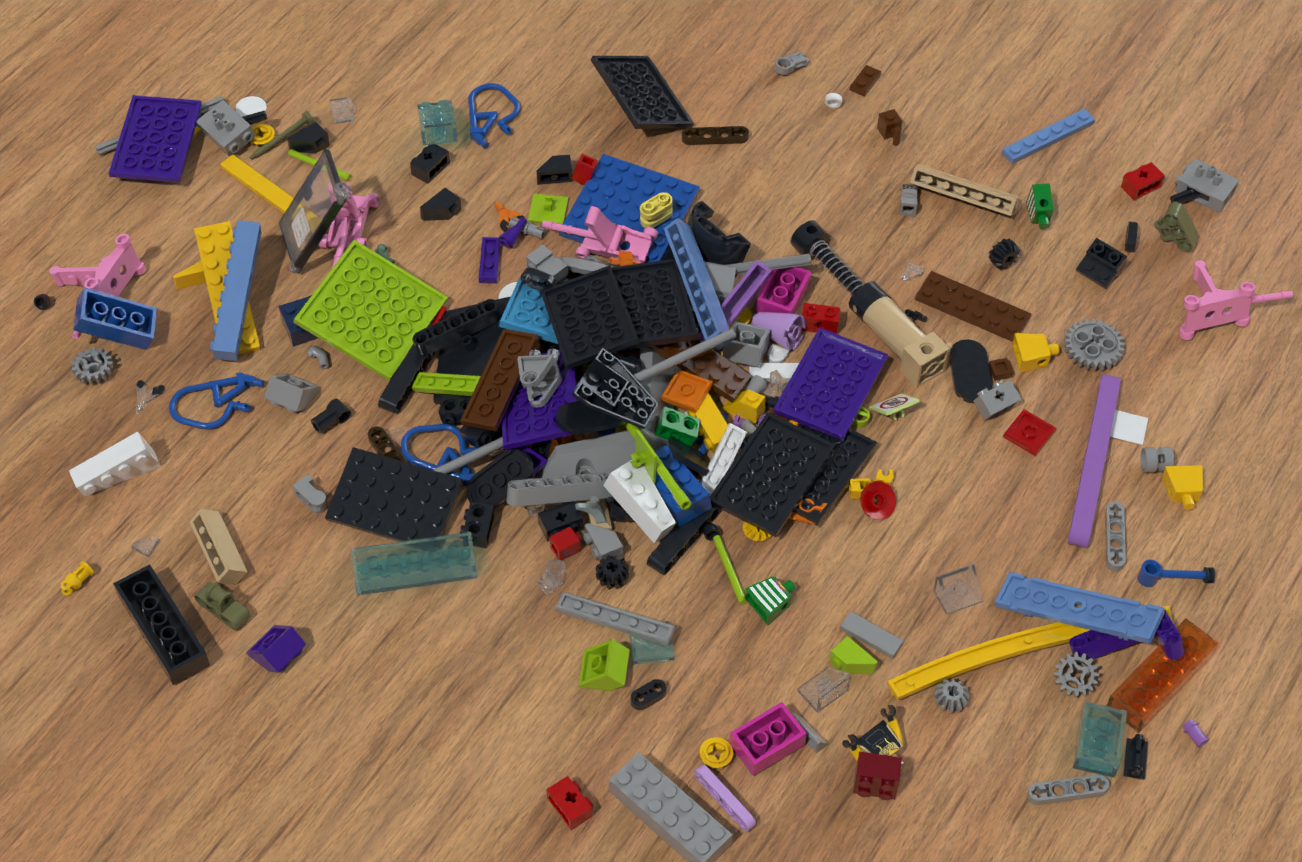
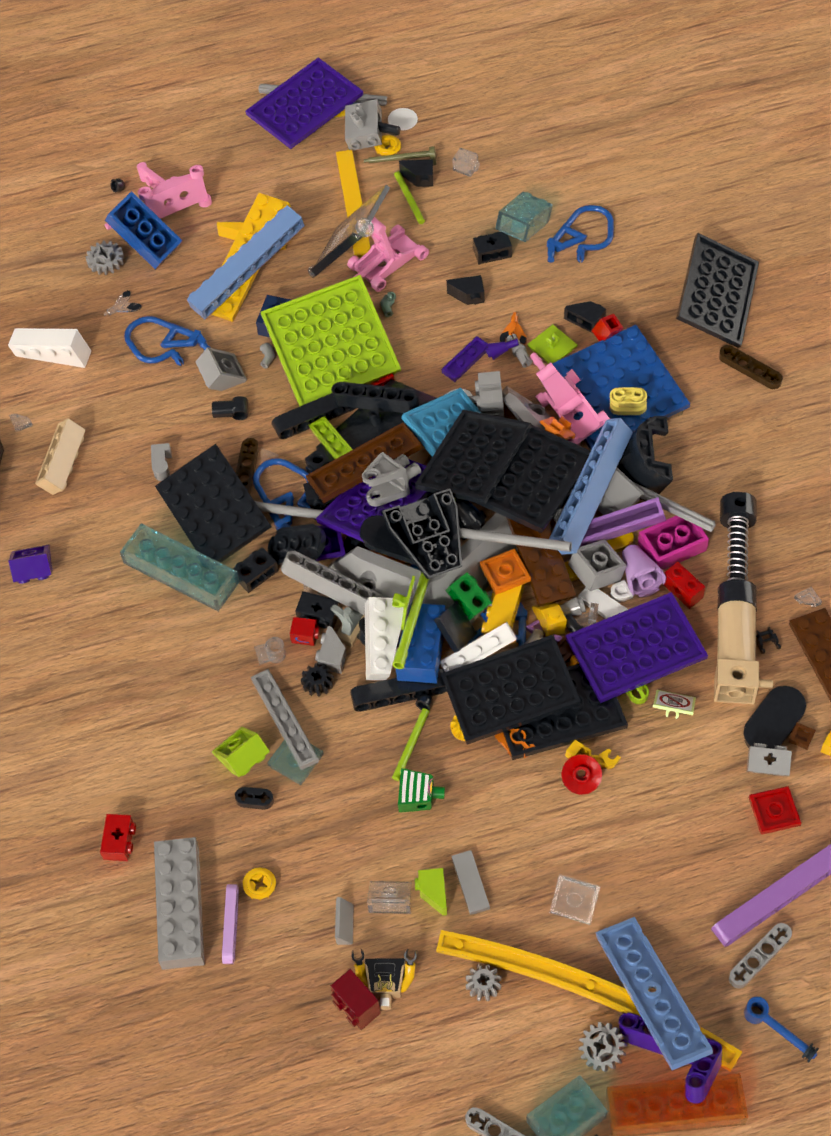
camera: 45 degrees right, 5 degrees up
(222, 605) = (25, 504): olive piece -> none
(538, 279) = (469, 398): black beam -> none
(767, 738) = (303, 902): dark pink brick -> none

